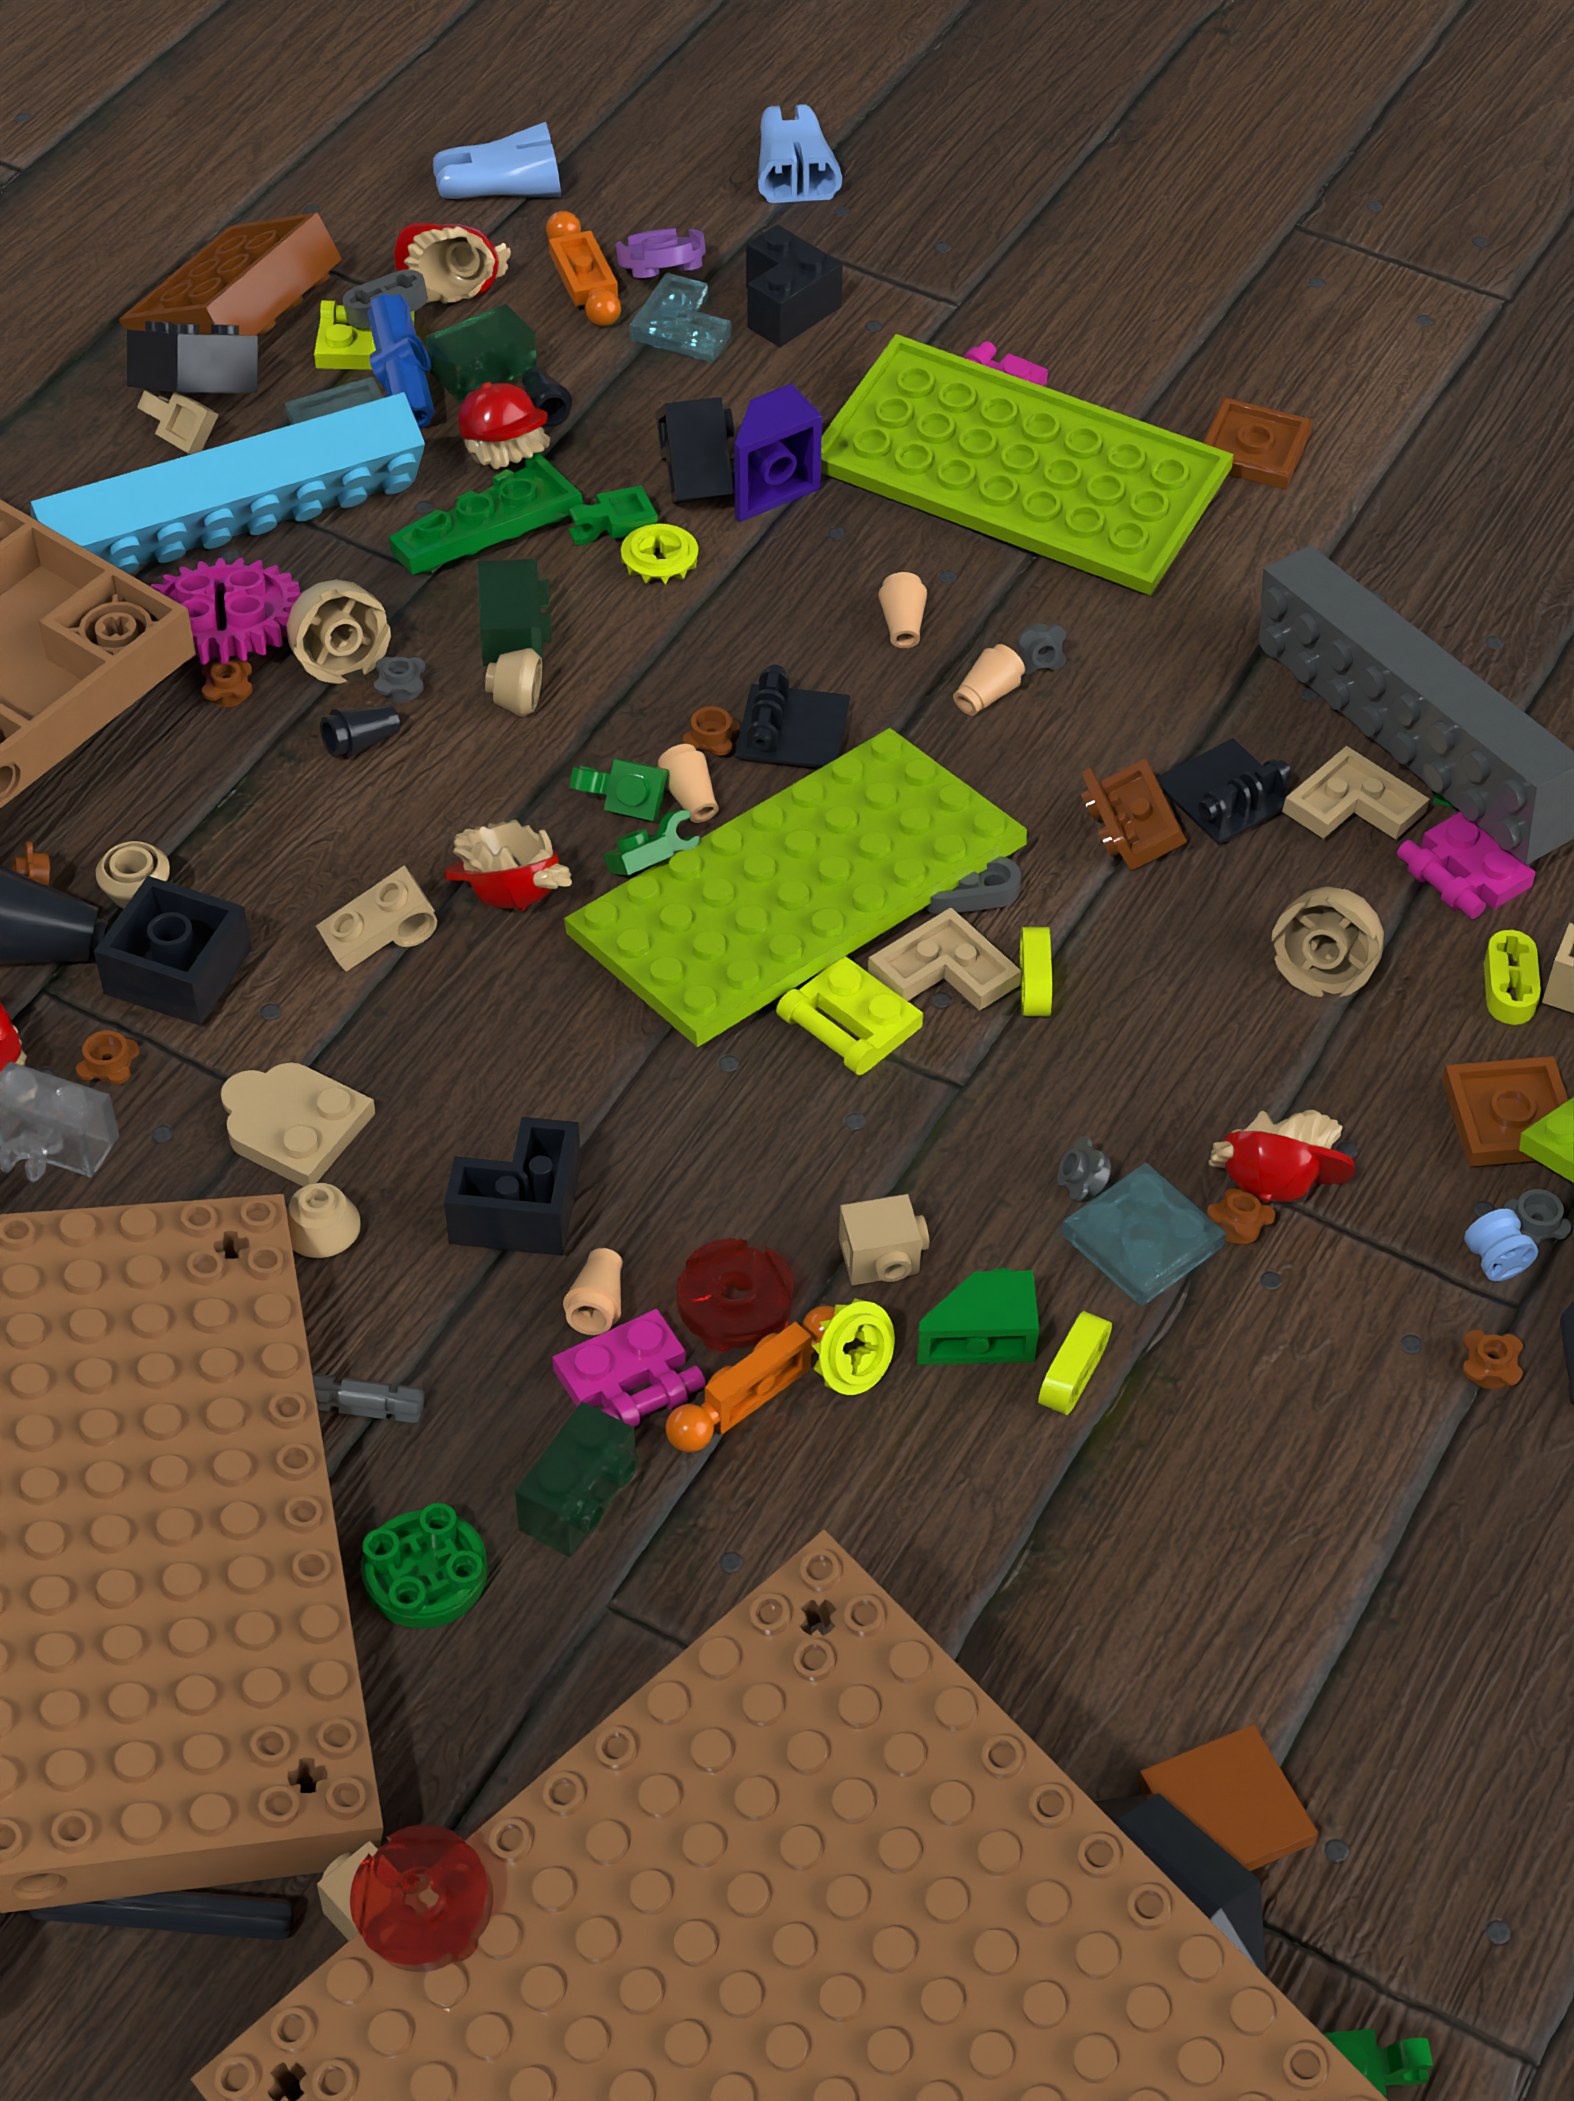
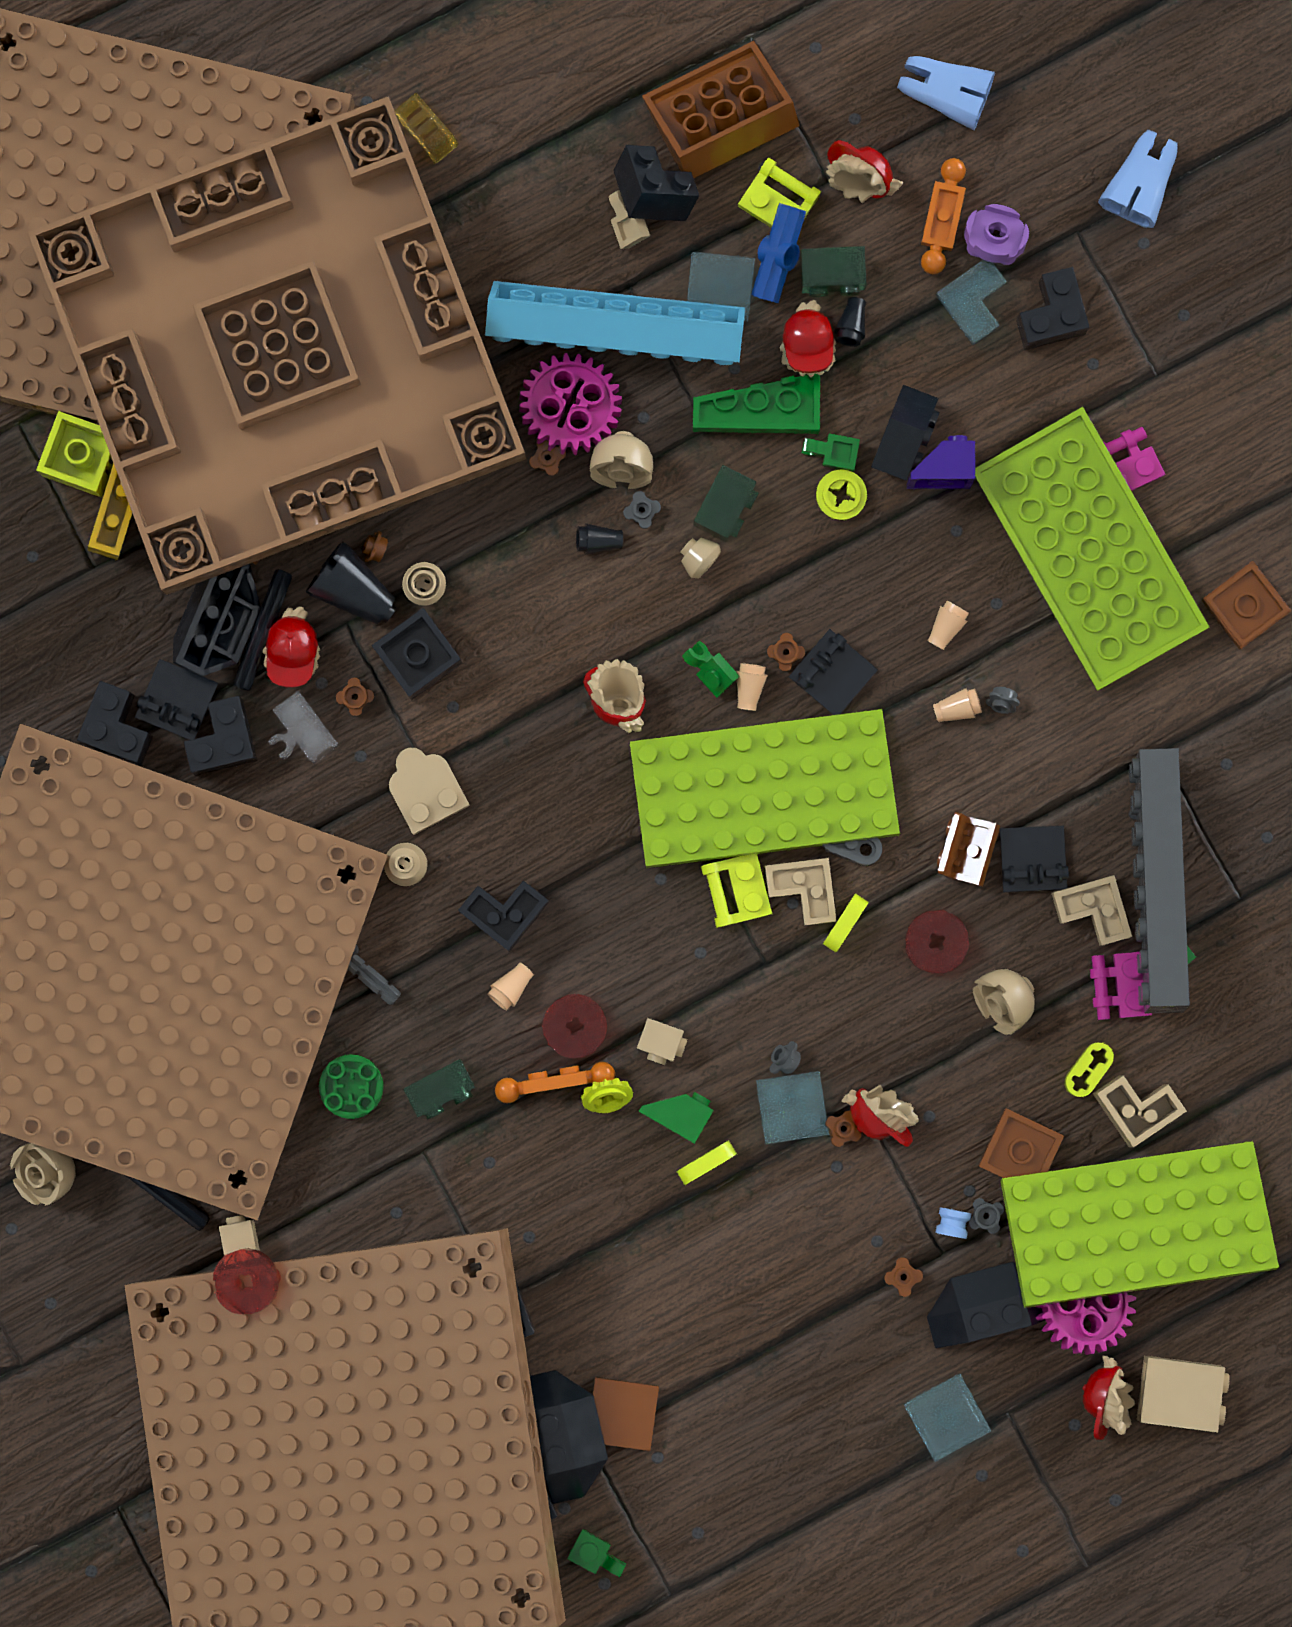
camera: 35 degrees right, 35 degrees up
(386, 912) = (532, 687): tan plate -> none
(407, 283) = (801, 180): dark grey beam -> none
(624, 1359) = (500, 1028): dark pink plate -> none
(641, 850) = (696, 721): plate -> none
(1185, 915) = (939, 923): none -> clear red plate

